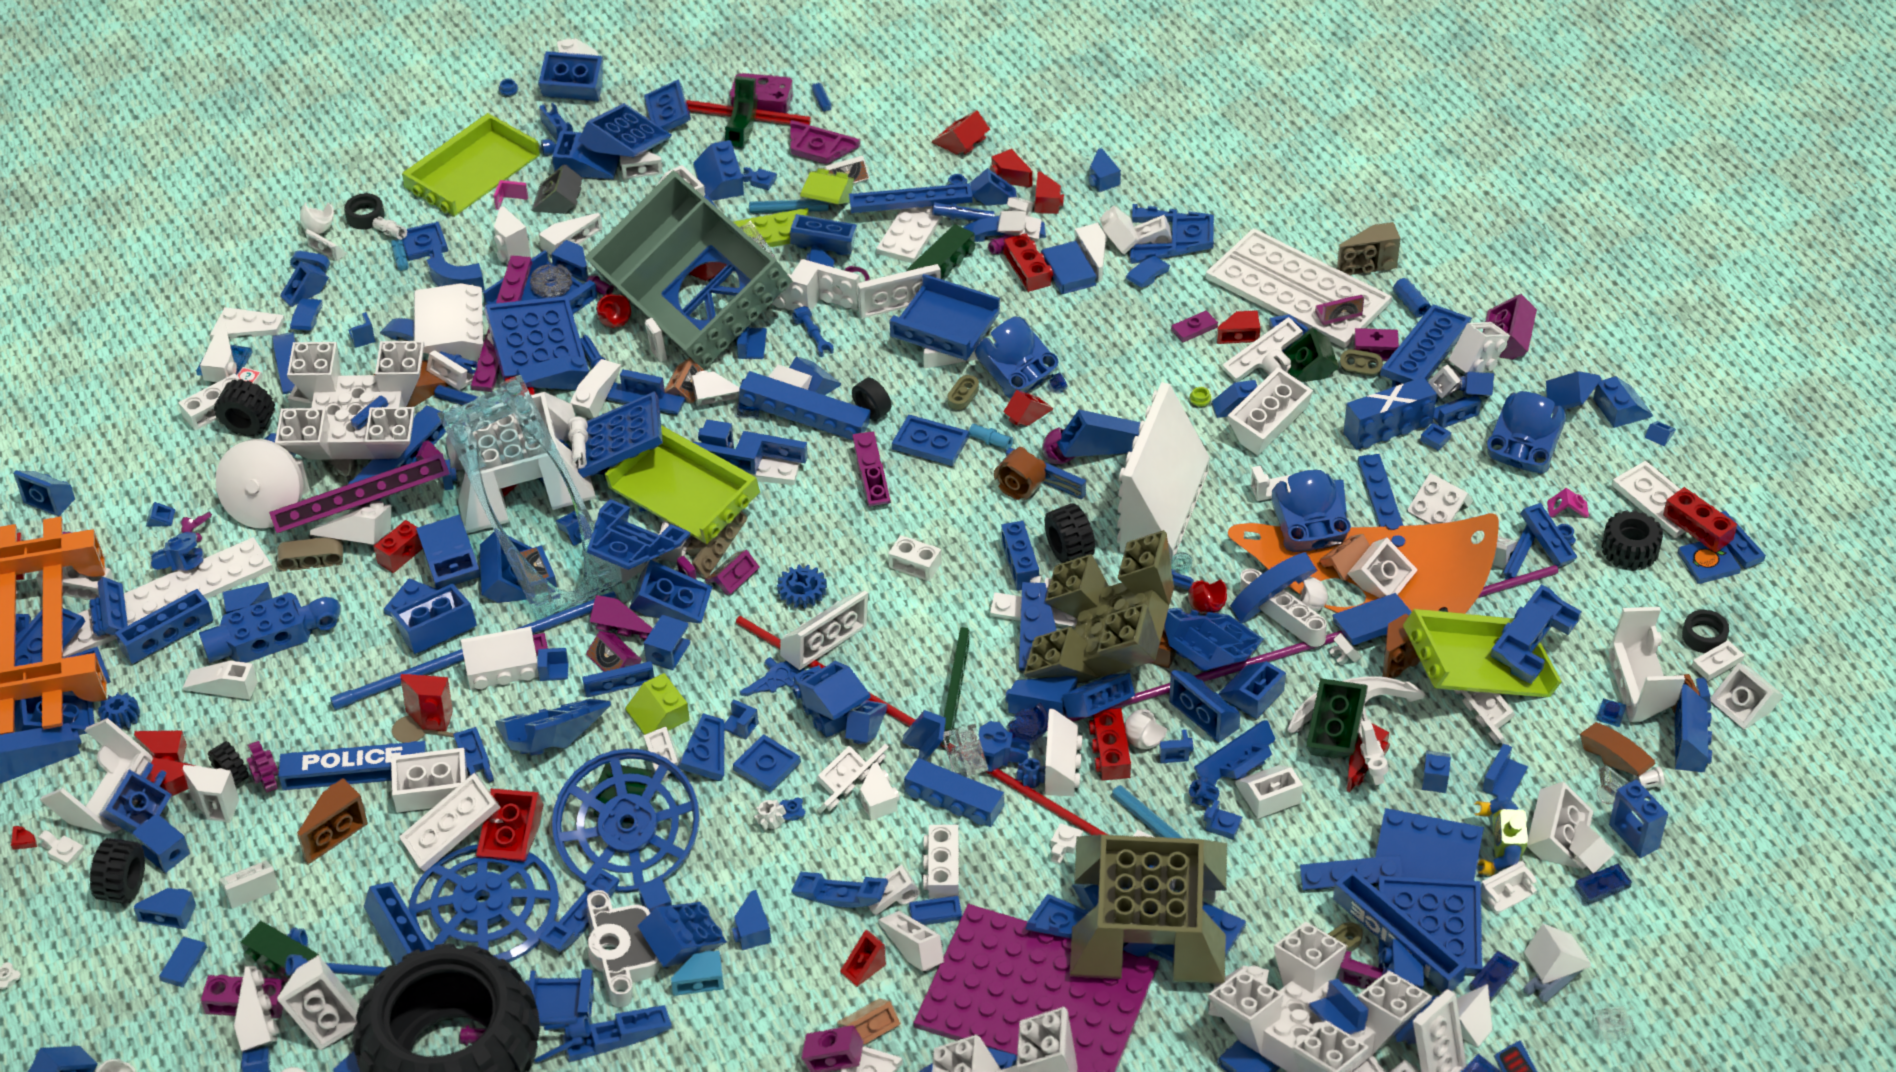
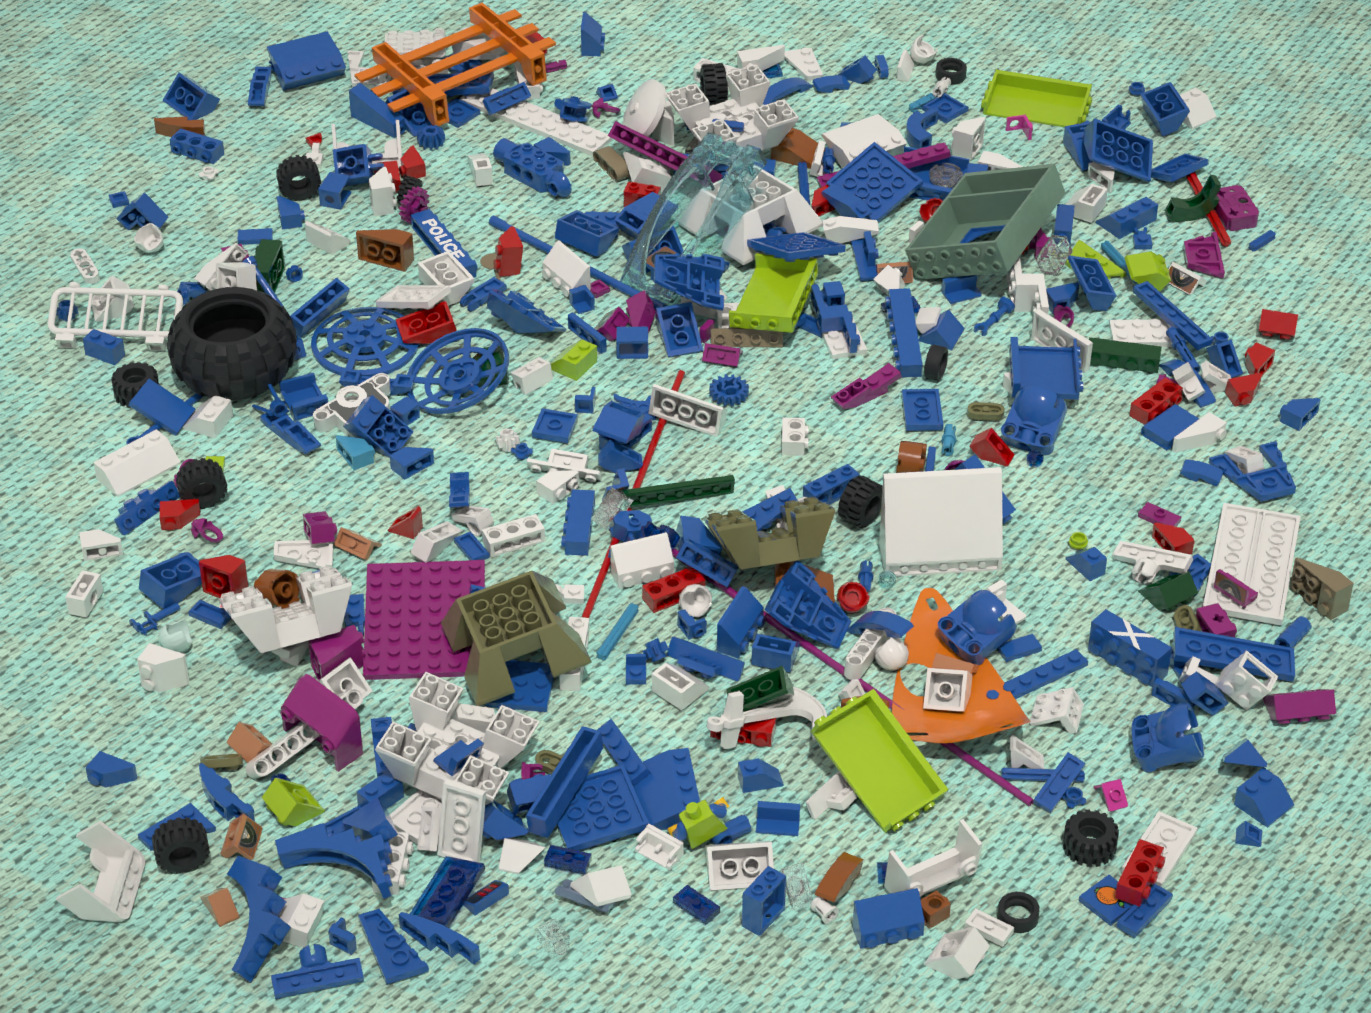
camera: 65 degrees right, 5 degrees down
(164, 626) = (507, 125): blue brick -> none
(362, 334) = (831, 113): blue panel -> none
(558, 192) = (1041, 147): dark grey slope -> none
(578, 437) = (780, 228): white pin -> none
(590, 351) = (890, 220): blue axle -> none
(705, 749) = (547, 392): blue wing -> none
(1119, 229) = (1232, 436): white slope -> none
(1269, 410) = (1080, 577): white slope -> none
(1370, 619) = (901, 702): blue tile -> none
(1435, 436) = (1133, 689): blue plate -> none
(1529, 628) = (923, 783): blue bracket -> none
(1589, 848) = (724, 882): white slope -> none
(1703, 690) = (940, 923): blue tile -> none

